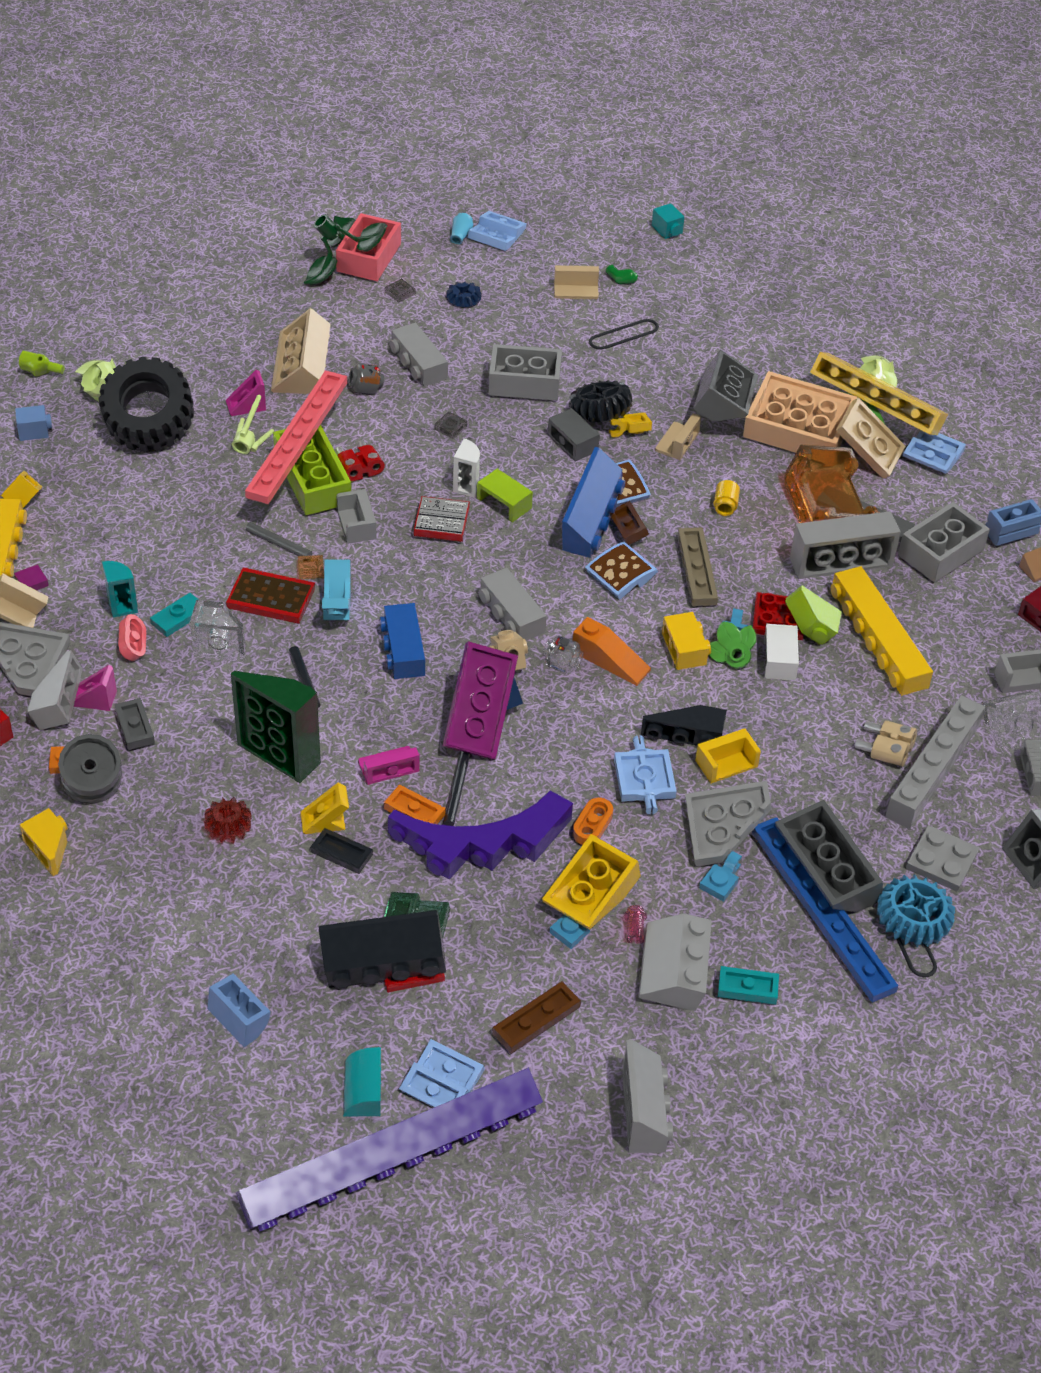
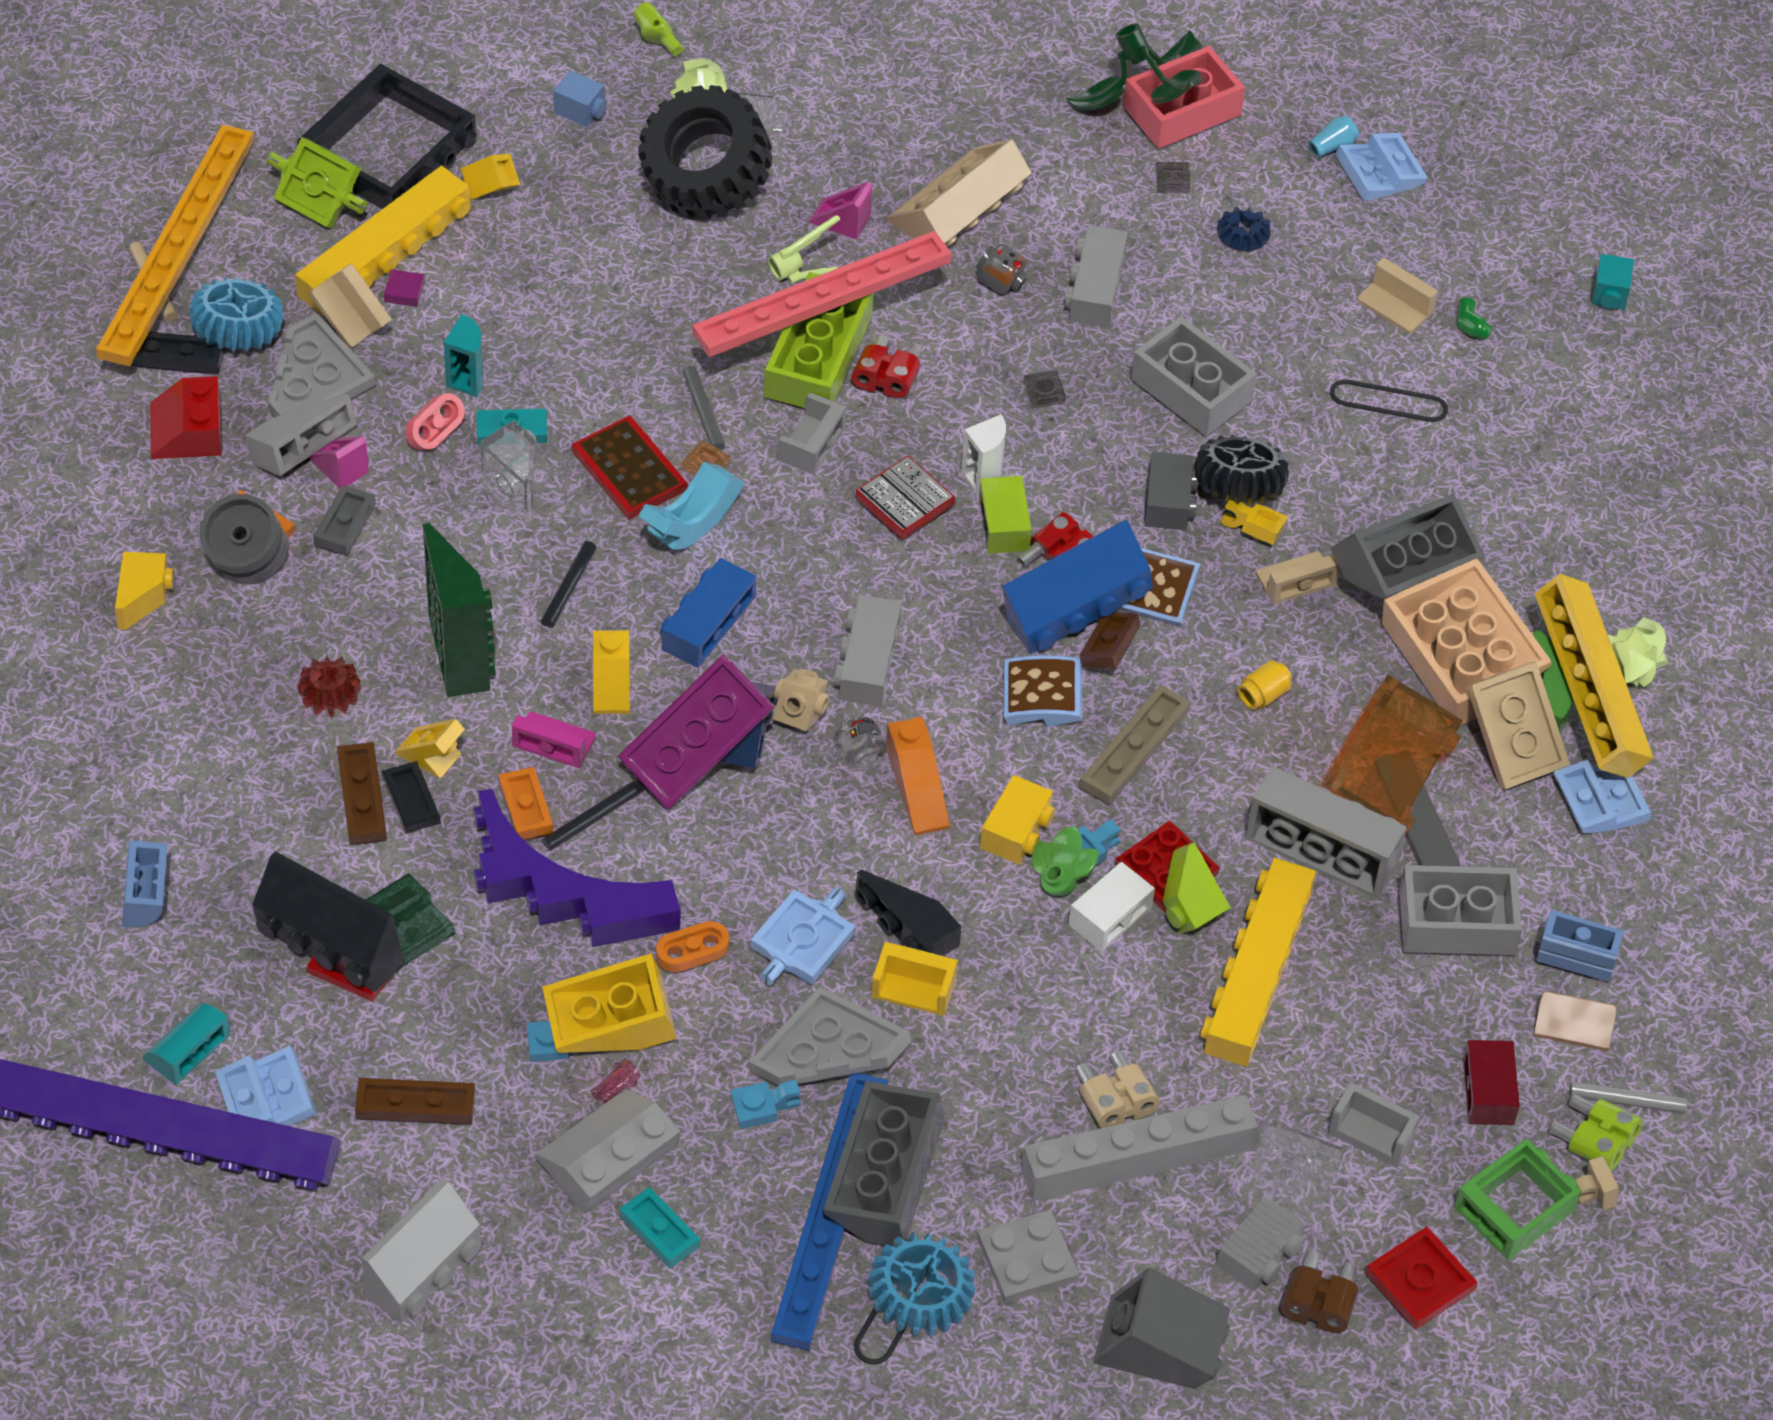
camera: 40 degrees right, 5 degrees up
(312, 867) = (361, 793): none -> reddish brown plate
(385, 705) = (611, 672): none -> yellow slope
(552, 492) = (1054, 539): none -> red piece

